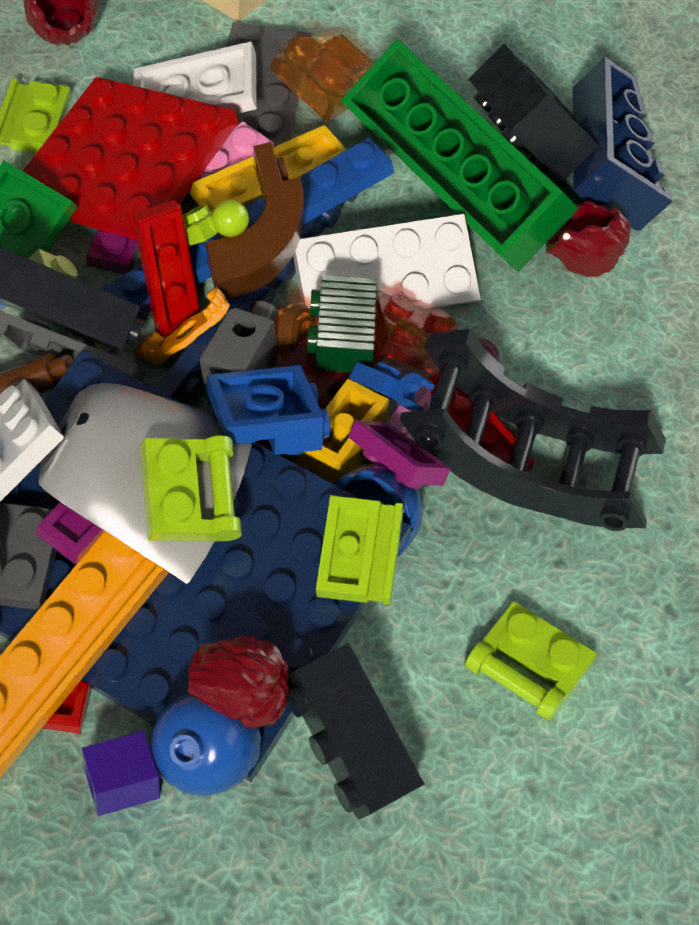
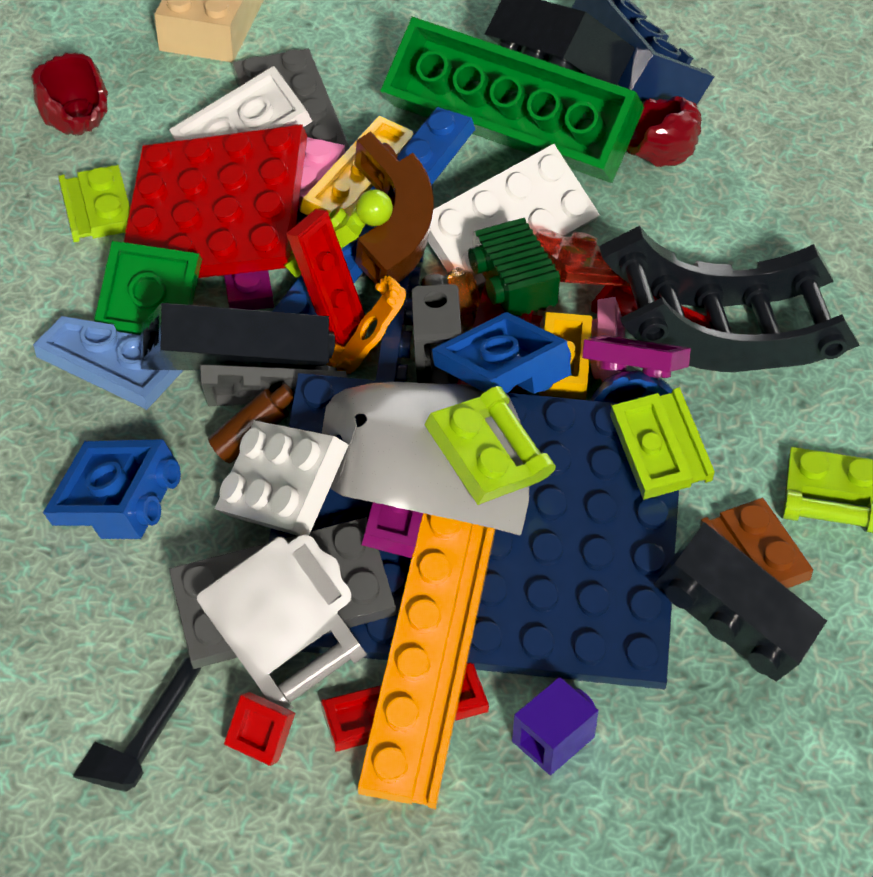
camera: 20 degrees left, 5 degrees down
(202, 748) = (618, 664): blue cylinder -> none
(241, 679) = (631, 590): dark red hair -> none
(321, 70) = (345, 74): clear orange slope -> none
(388, 383) = (582, 301): blue plate -> none
(419, 685) = (764, 540): none -> dark orange plate

